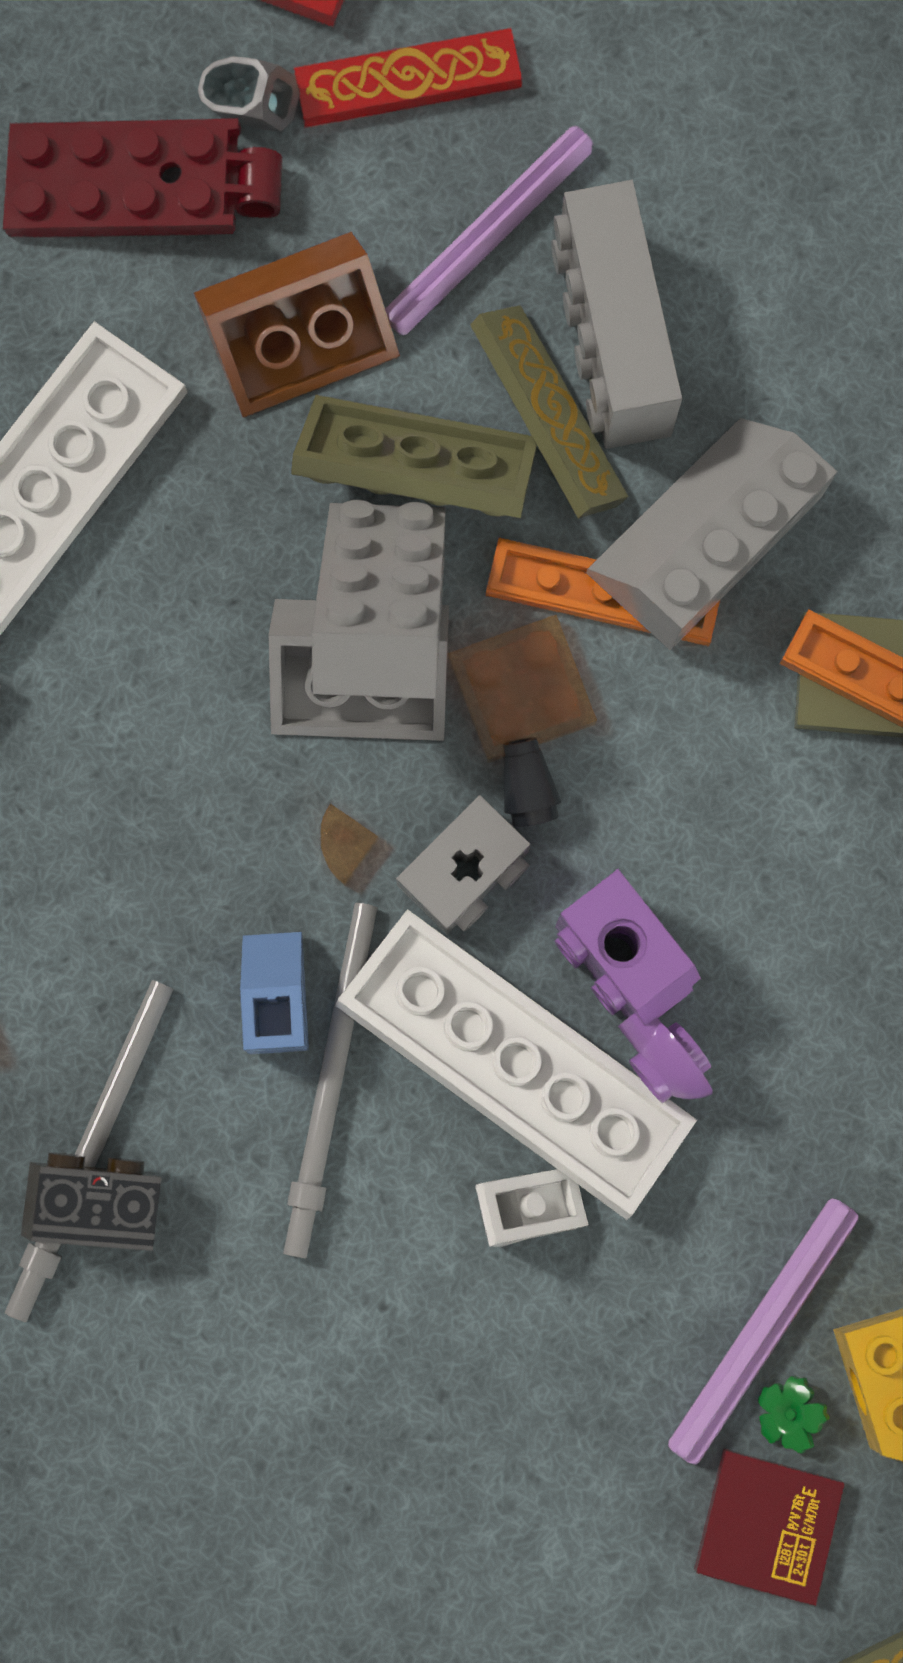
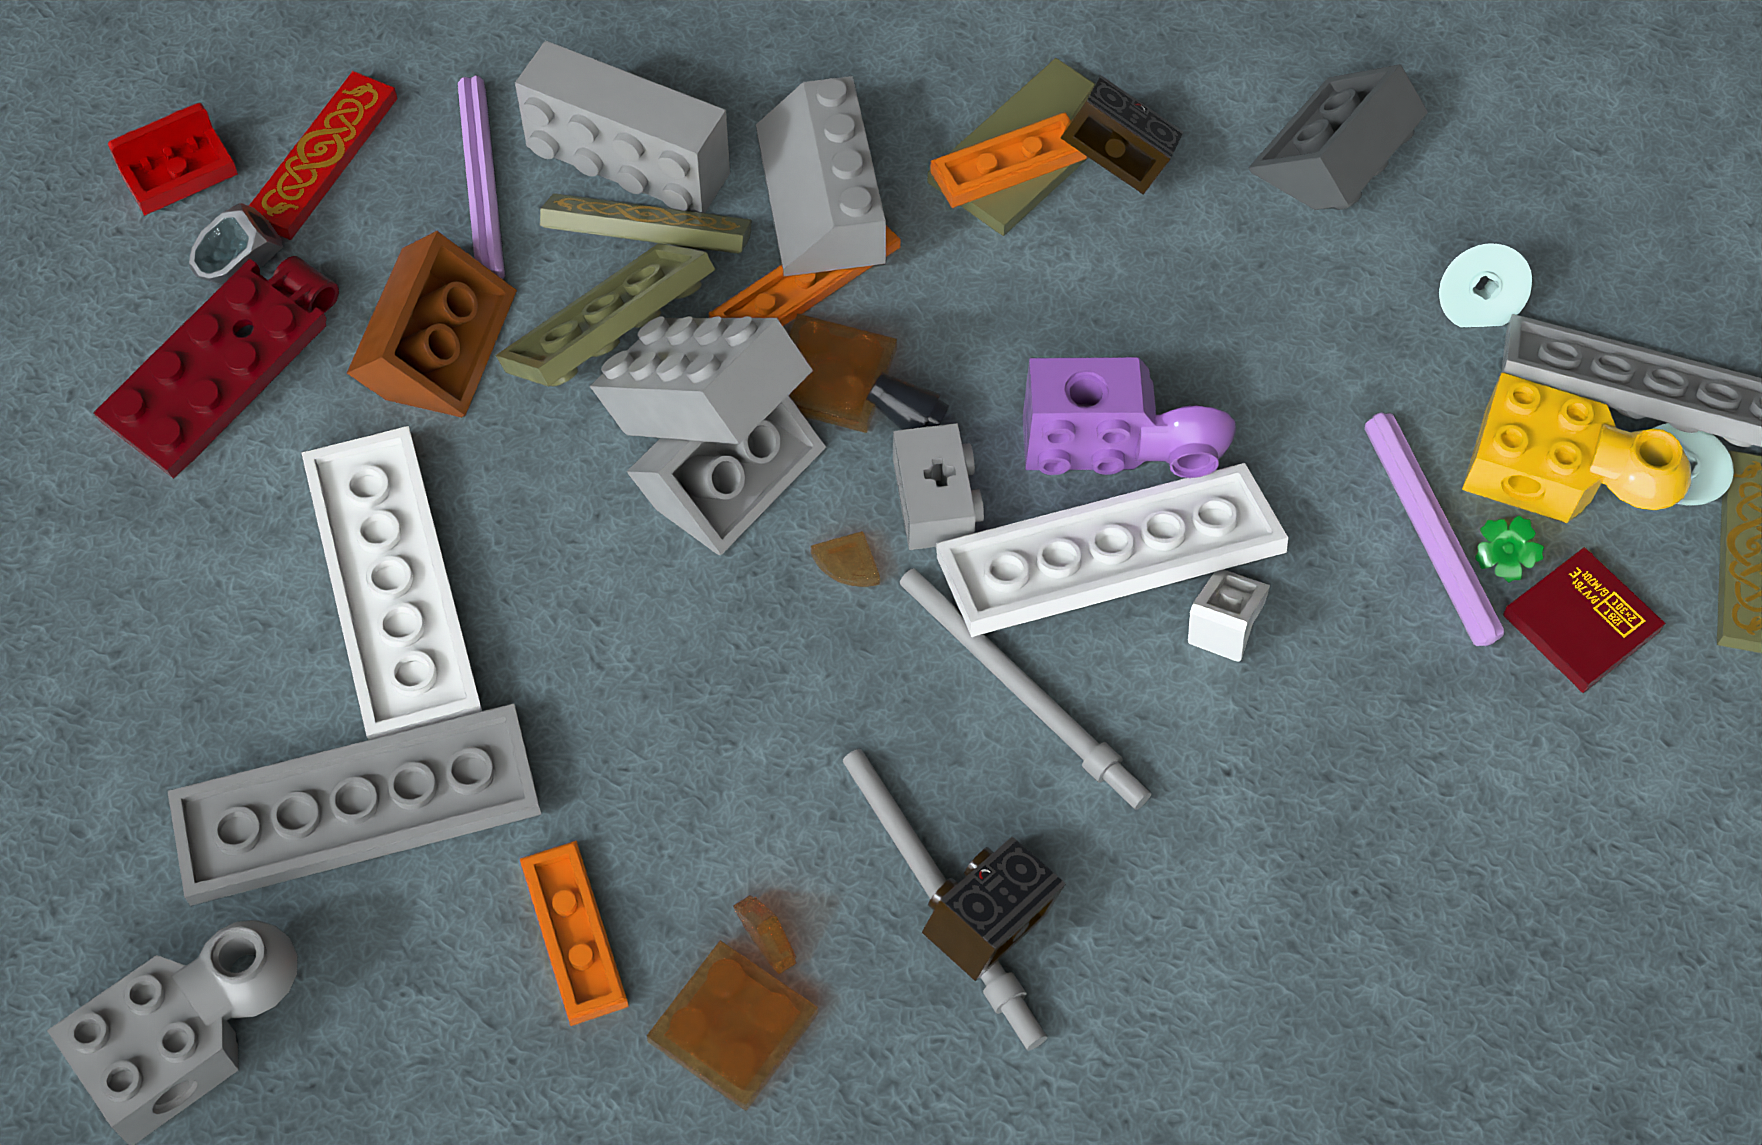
camera: 55 degrees left, 20 degrees down
(273, 993) = (931, 672): medium blue slope -> none

